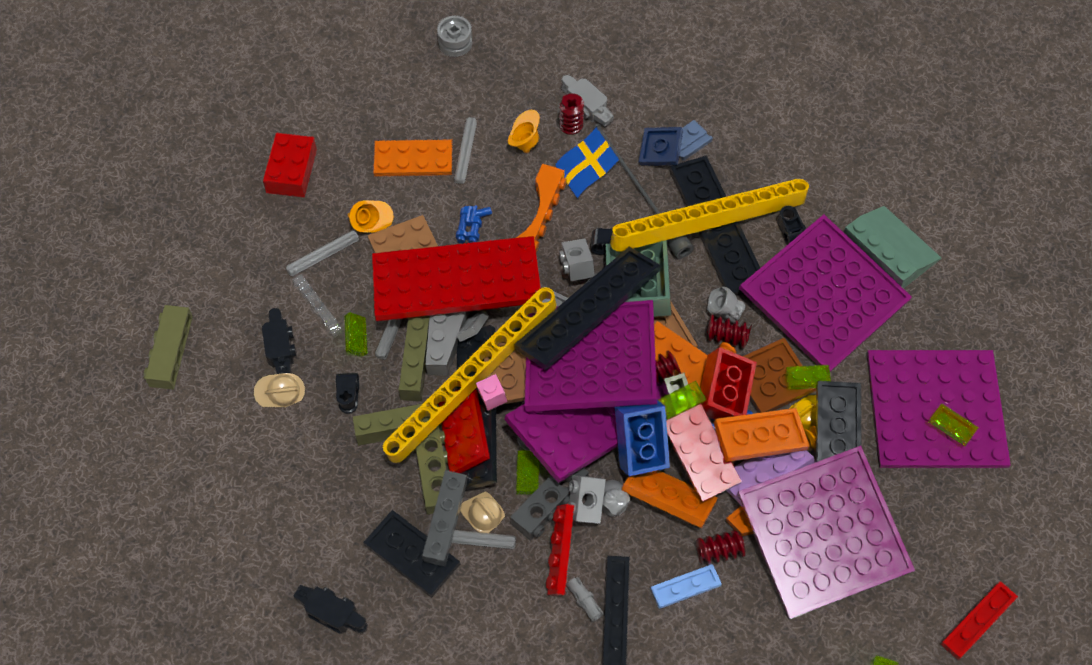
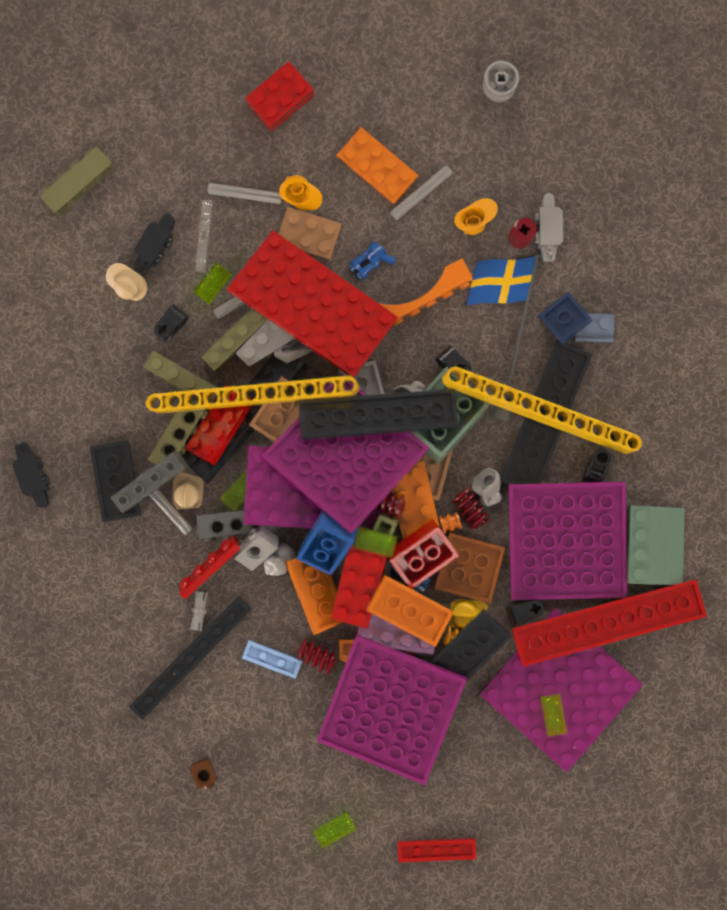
camera: 45 degrees right, 25 degrees up
(491, 392) = (252, 422): bright pink brick -> none
(577, 259) = (411, 369): light grey brick -> none
(806, 376) = (491, 592): clear neon green plate -> none
(847, 371) = (521, 612): none -> black piece
(918, 325) = (608, 622): none -> red plate

